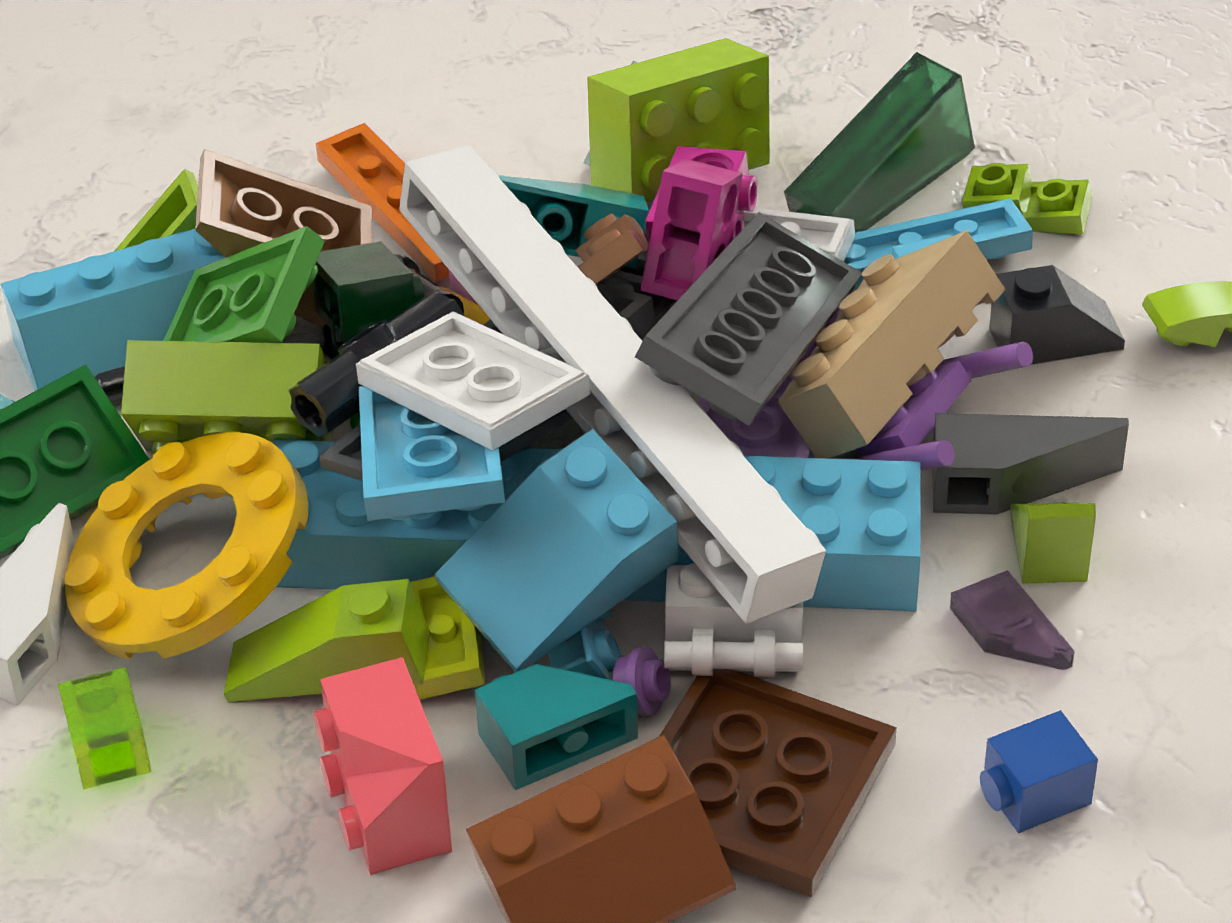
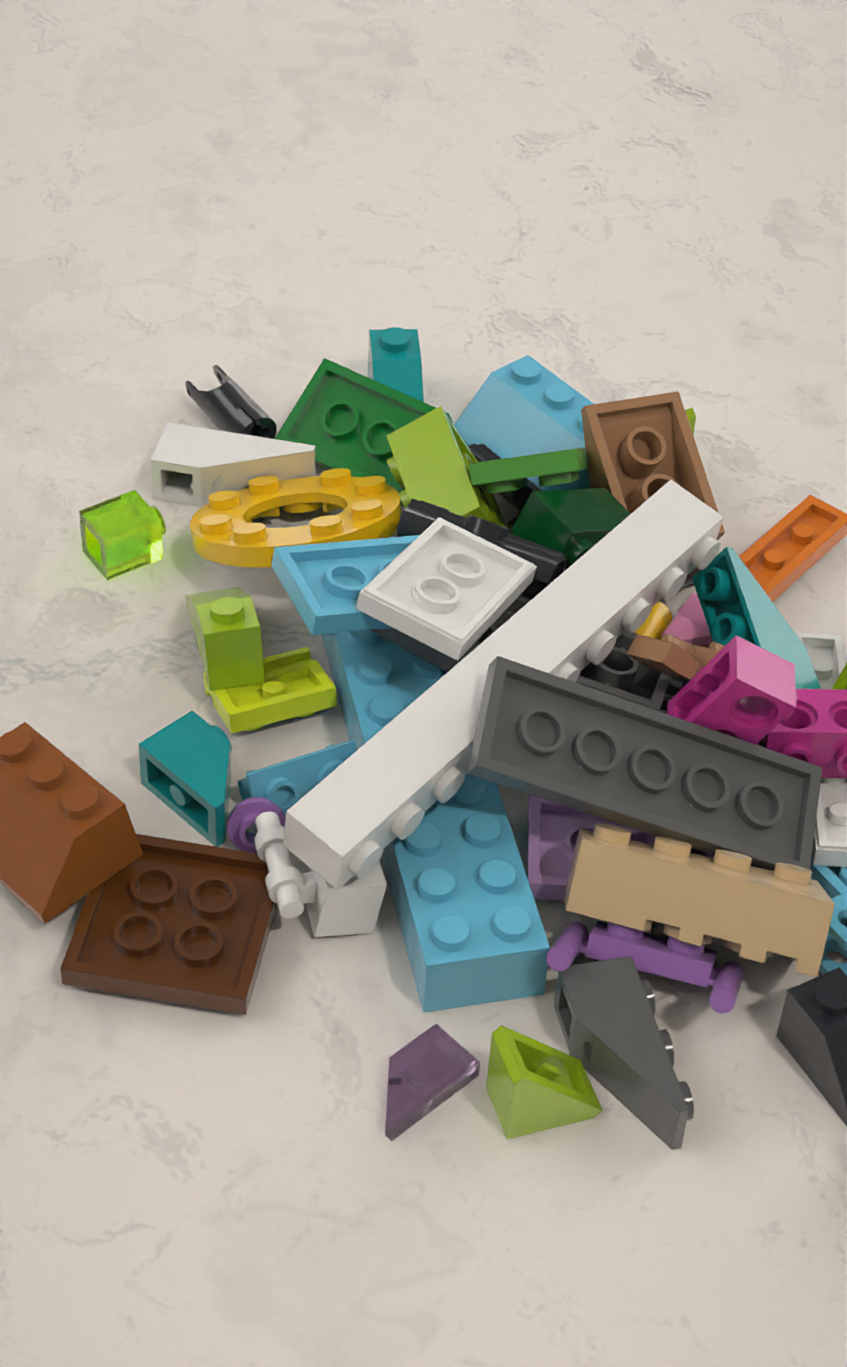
camera: 70 degrees right, 0 degrees up
(383, 766) = (106, 680): coral slope -> none
(560, 552) = (324, 708): medium azure slope -> none
(1038, 772) = (226, 1114): blue brick -> none

